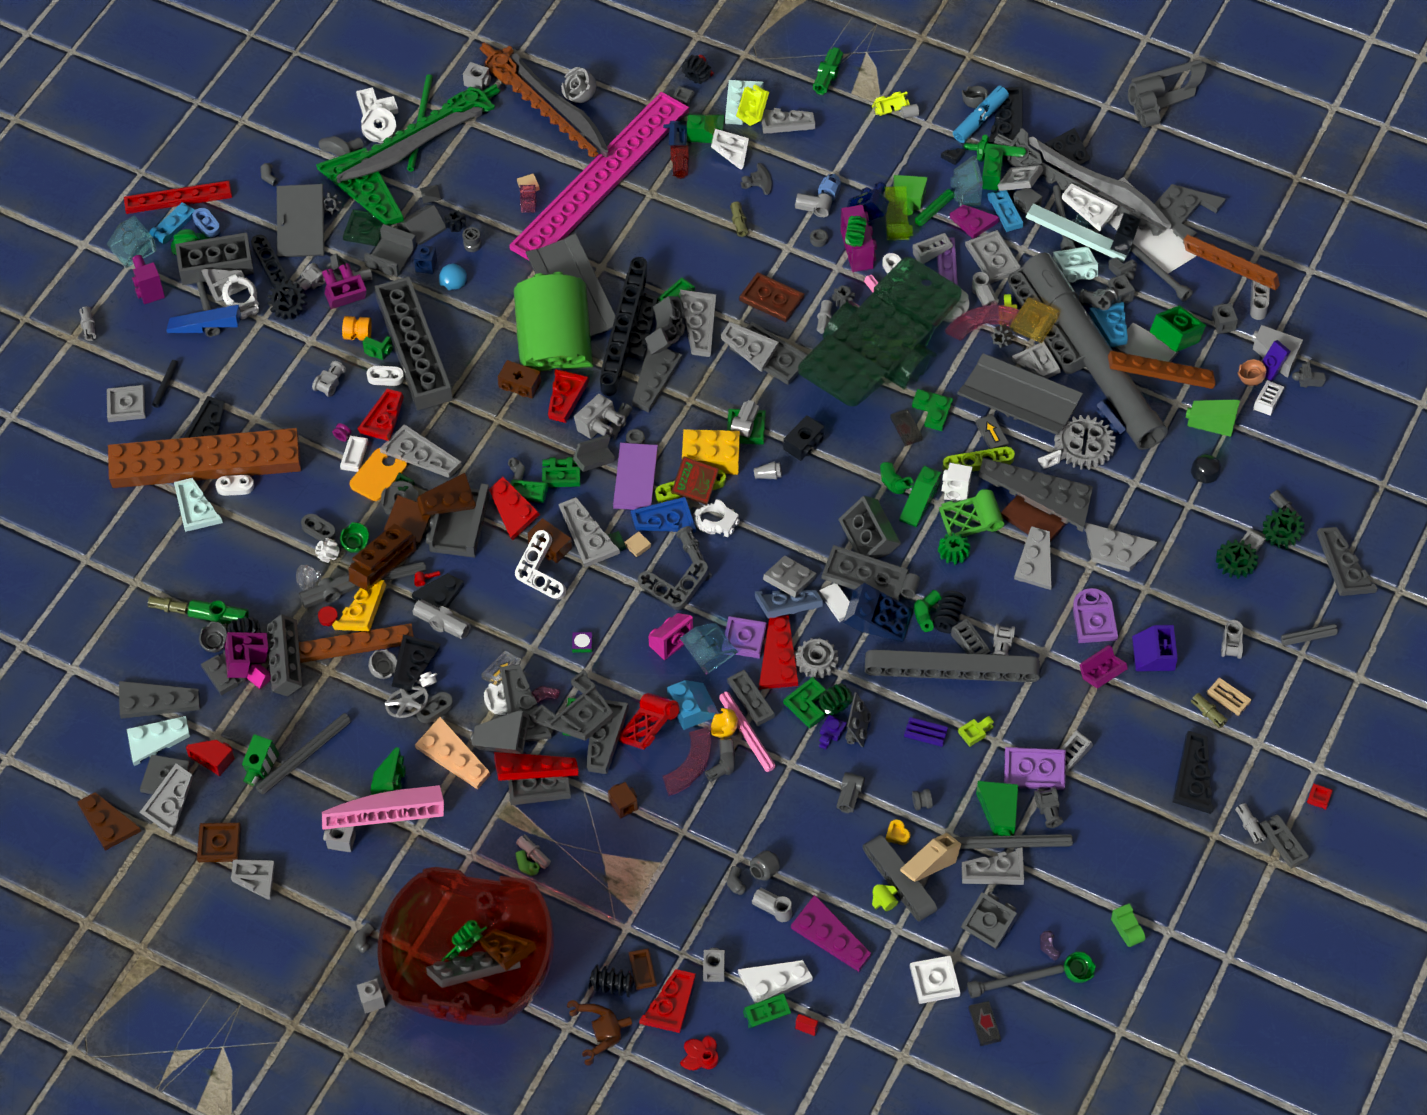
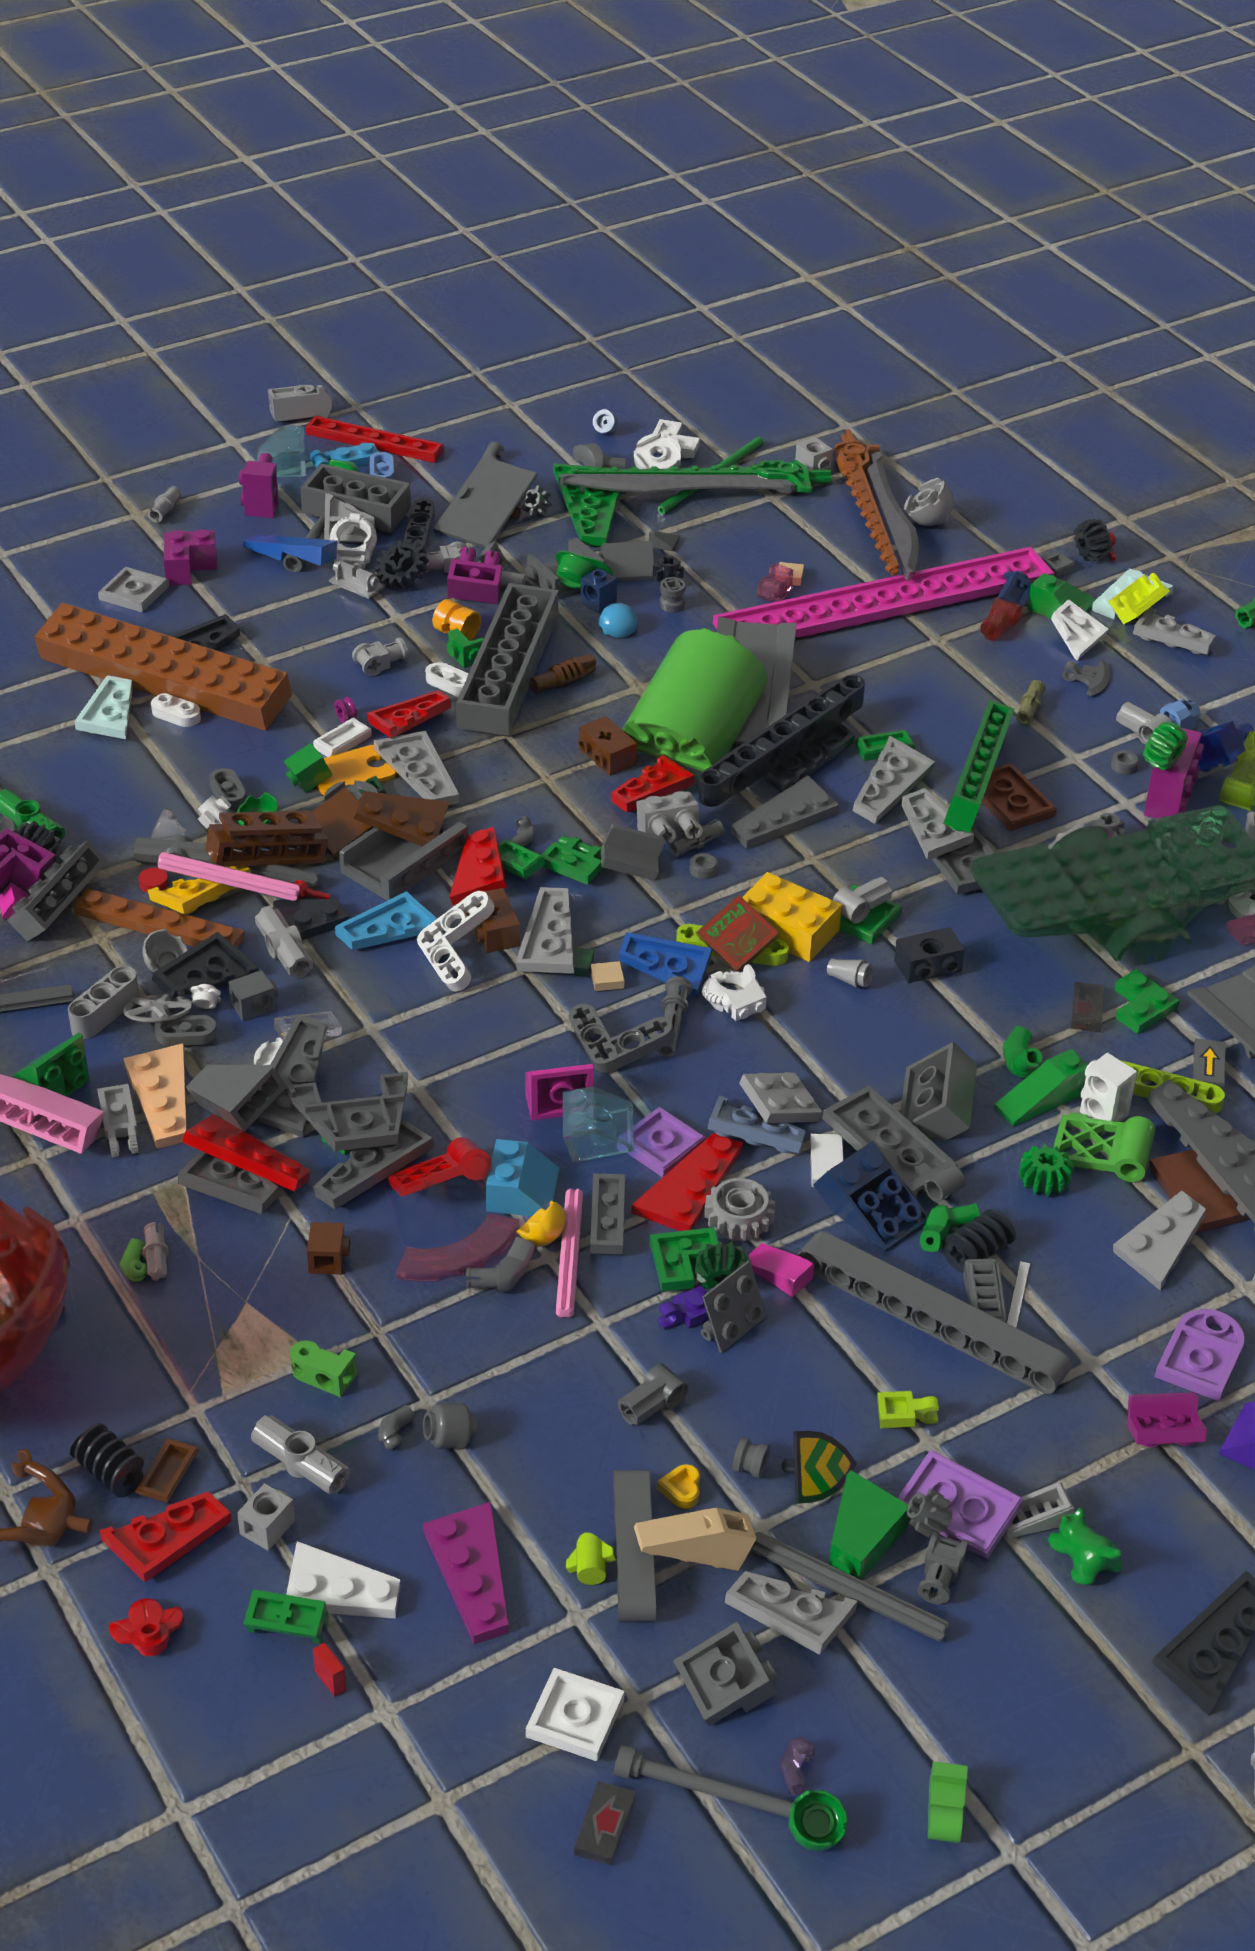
camera: 30 degrees right, 15 degrees down
(106, 191) = (299, 402): none -> light grey piece
(140, 358) = (188, 552): none -> magenta brick
(164, 384) = (194, 589): black piece -> none
(260, 326) = (361, 582): none -> light grey hinge
(318, 112) = (605, 421): none -> tile
(357, 489) = (307, 768): none -> green brick
(363, 228) = (551, 539): clear green tile -> none
(373, 706) = (103, 1002): none -> light grey beam
(380, 593) = (228, 876): none -> bright pink axle
(403, 253) = (574, 567): none -> green piece
(437, 775) = (118, 1117): none -> light grey hinge
(451, 335) = (564, 673): none -> reddish brown hinge
(454, 664) = (253, 995): none -> dark grey brick
(489, 574) = (386, 922): none -> dark azure wing
(543, 692) = (337, 1079): clear pink arm -> none
(581, 642) = (439, 1048): tile -> none
(635, 476) = (669, 902): medium lavender tile -> none
(669, 324) = (828, 769): dark grey brick -> none
(674, 870) = (323, 1368): none -> bright green leg
(690, 922) = (300, 1454): none -> light grey piece
(751, 290) = (978, 767): none -> green brick
(772, 903) = (419, 1483): light grey piece -> none
(860, 681) = (781, 1268): none -> dark pink slope
(926, 728) = (832, 1373): dark purple tile -> none
(959, 785) = (818, 1465): none -> shield
(984, 630) = (1018, 1294): none -> white sticker
(1003, 639) = (1037, 1312): light grey connector -> none
(1029, 783) = (929, 1512): none -> dark grey gear
(1109, 759) = (1086, 1548): none -> green animal

